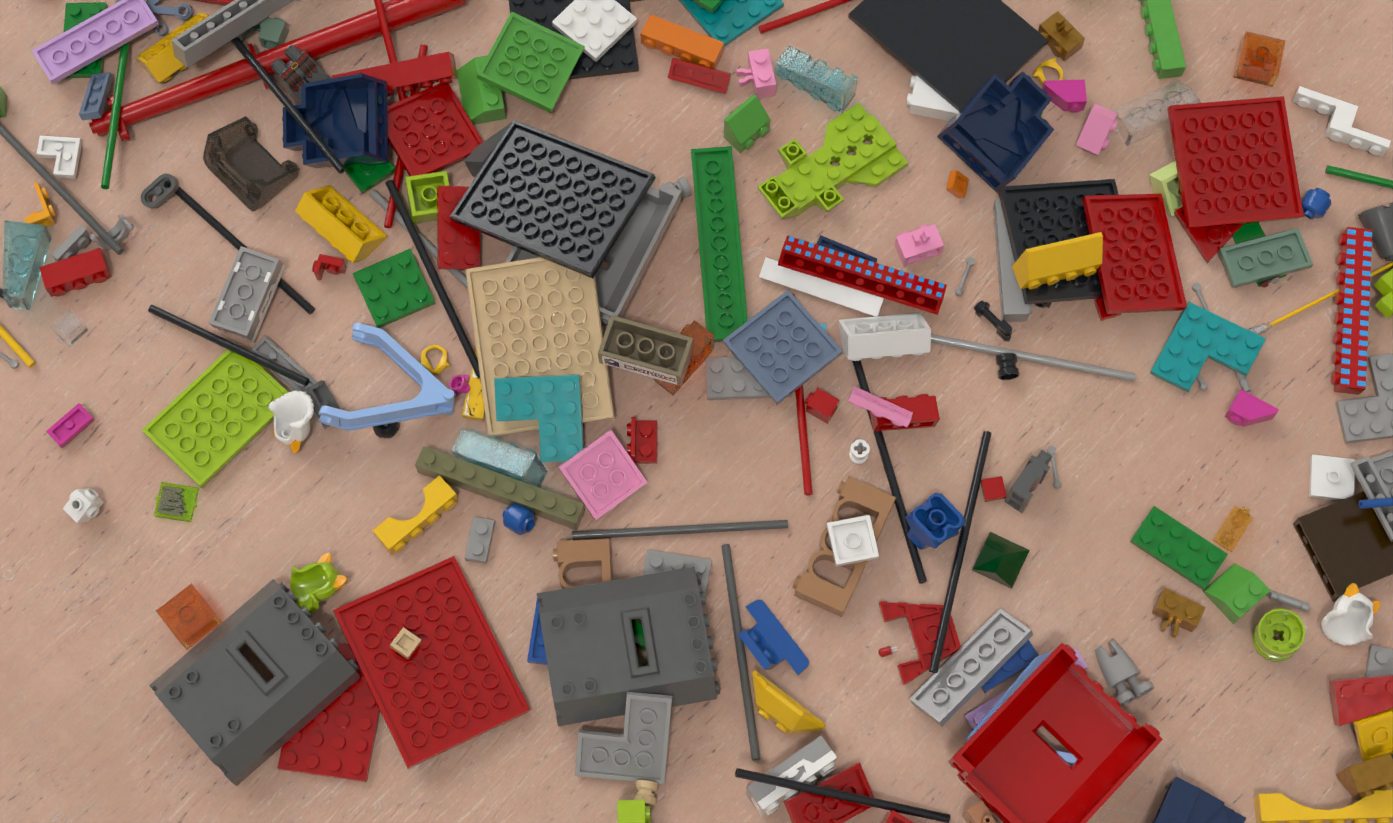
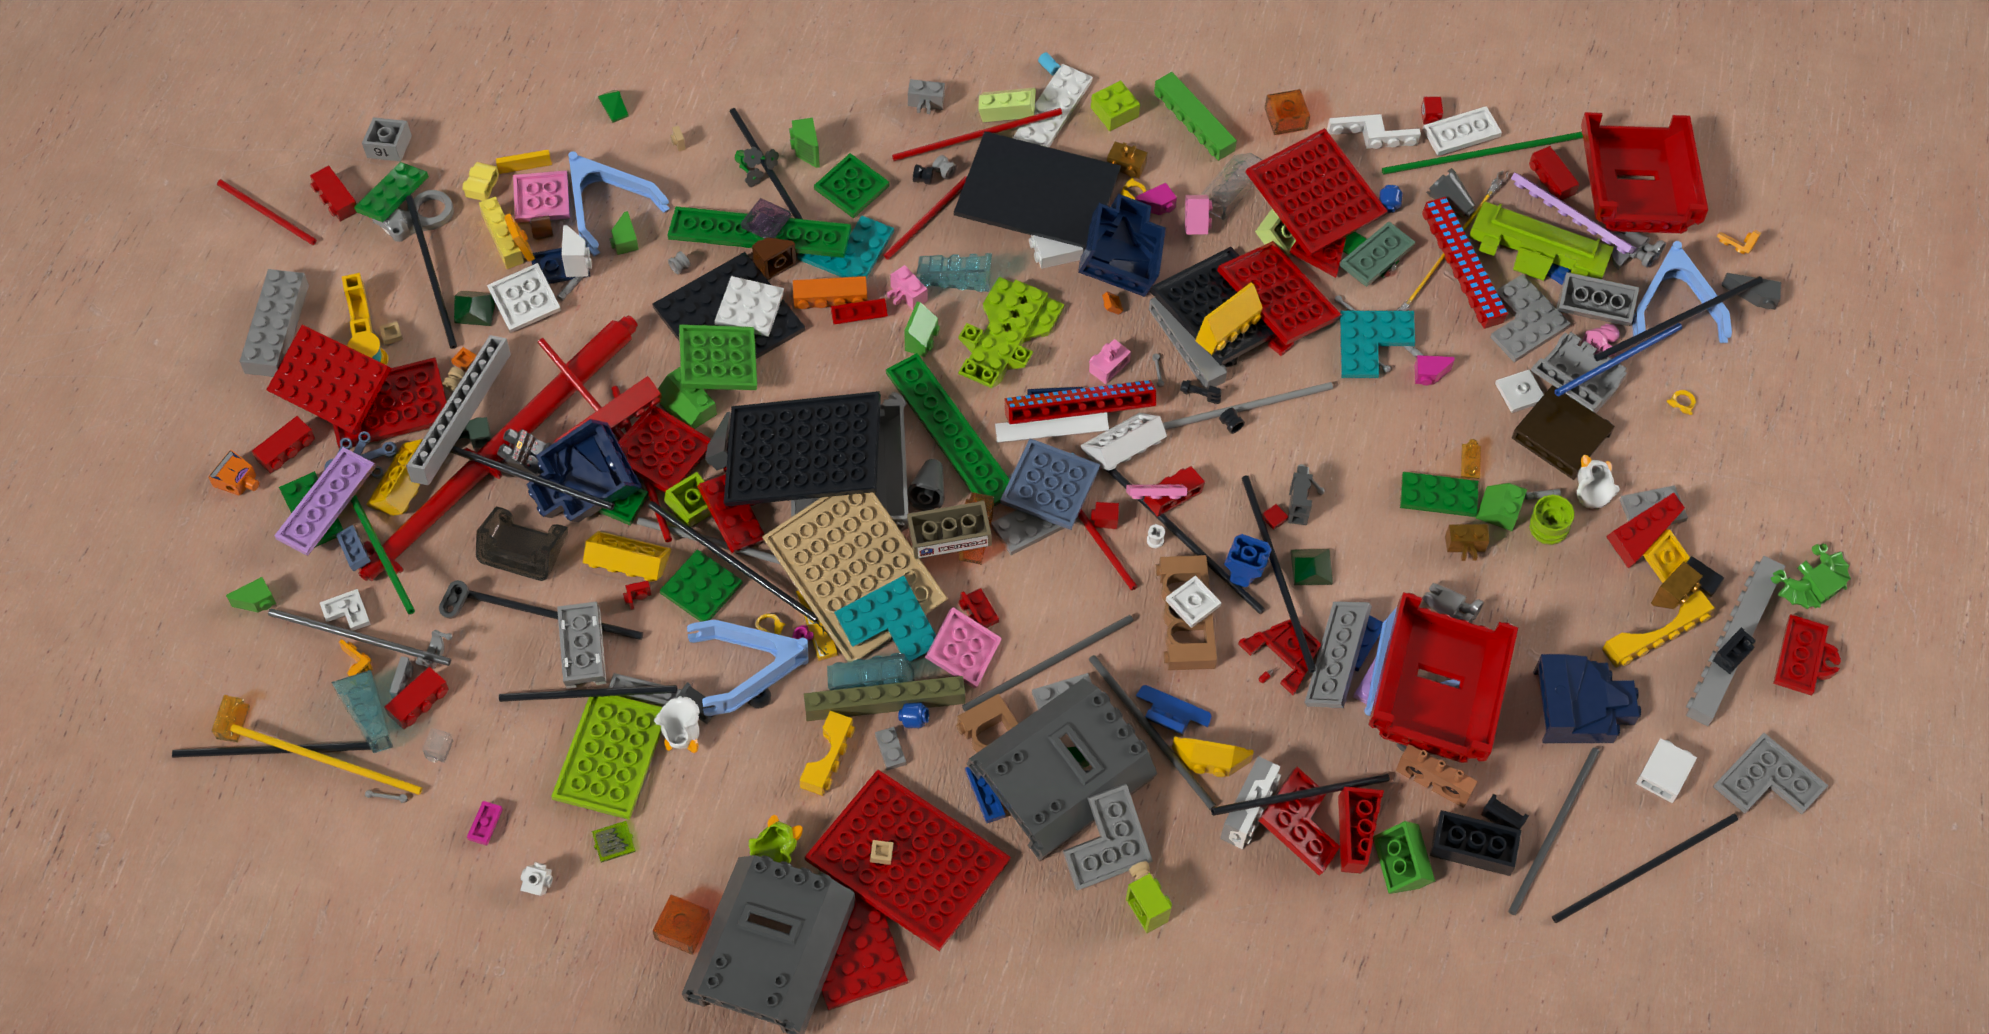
camera: 30 degrees left, 10 degrees down
(663, 290) = (927, 487): none -> dark grey cone

